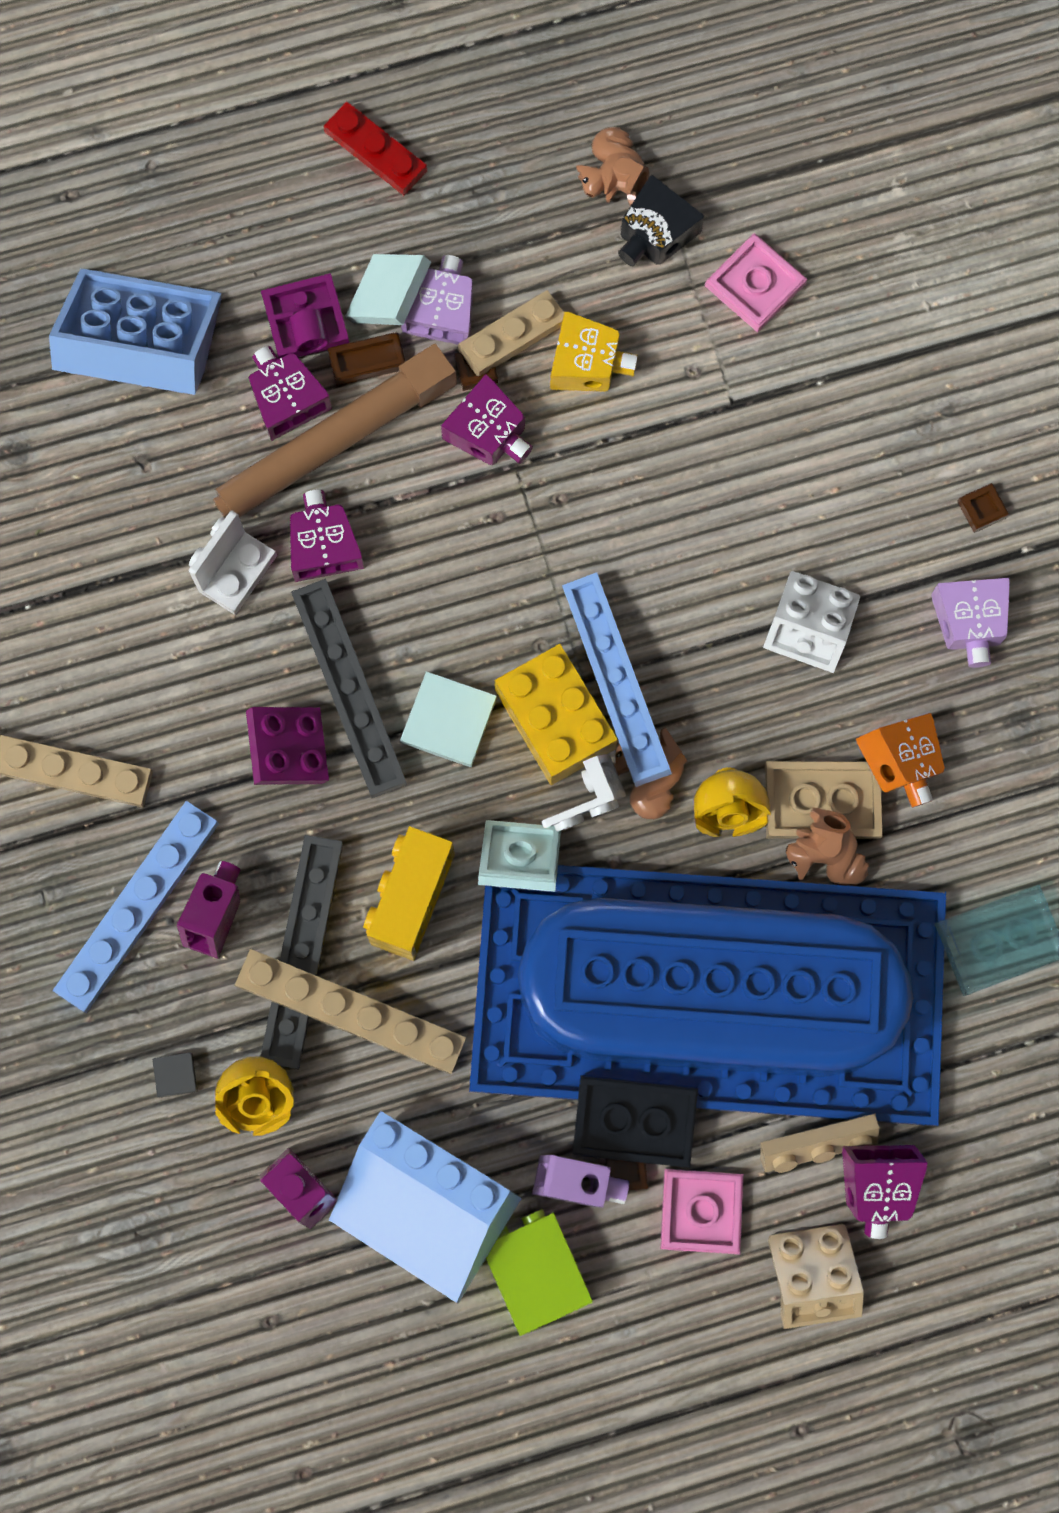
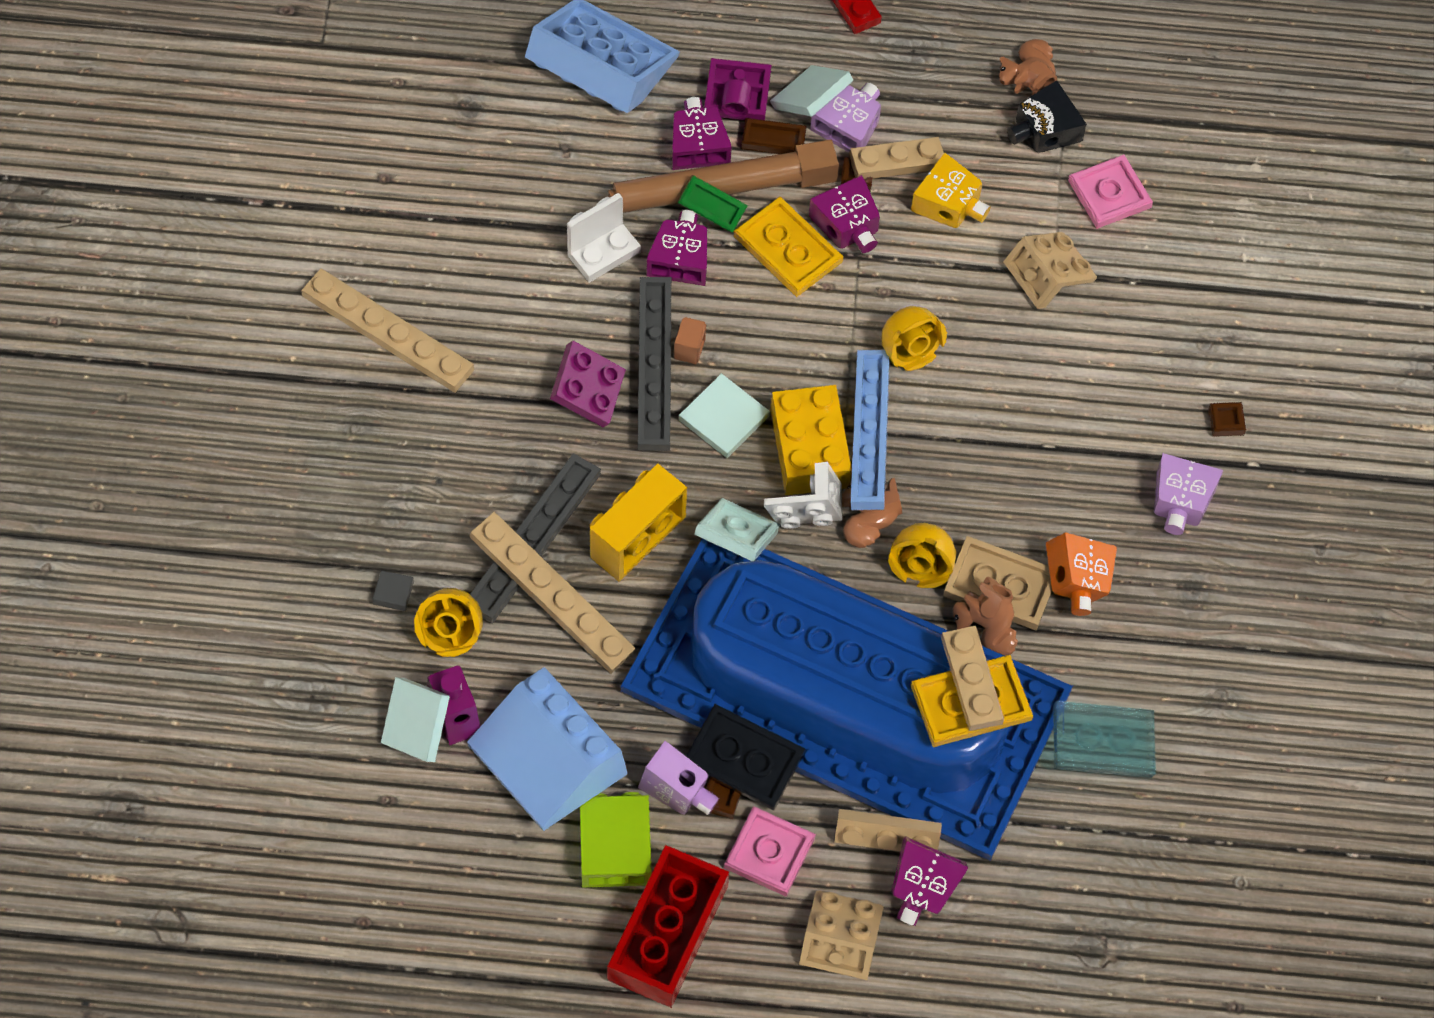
camera: 20 degrees right, 15 degrees down
(135, 907) = (417, 459): light blue plate -> none
(210, 910) = (473, 479): magenta torso -> none
(266, 1231) = (415, 719): none -> light aqua tile
(334, 471) = (712, 203): none -> green tile
(376, 646) = (690, 340): none -> nougat slope
(435, 486) = (788, 246): none -> yellow tile
(615, 547) = (913, 337): none -> yellow cylinder
(634, 1354) = (668, 926): none -> red brick
(727, 402) = (1047, 264): none -> tan bracket
(812, 621) = (1047, 449): white bracket -> none
(864, 966) = (972, 678): none -> tan plate
(870, 988) = (943, 711): none -> yellow tile

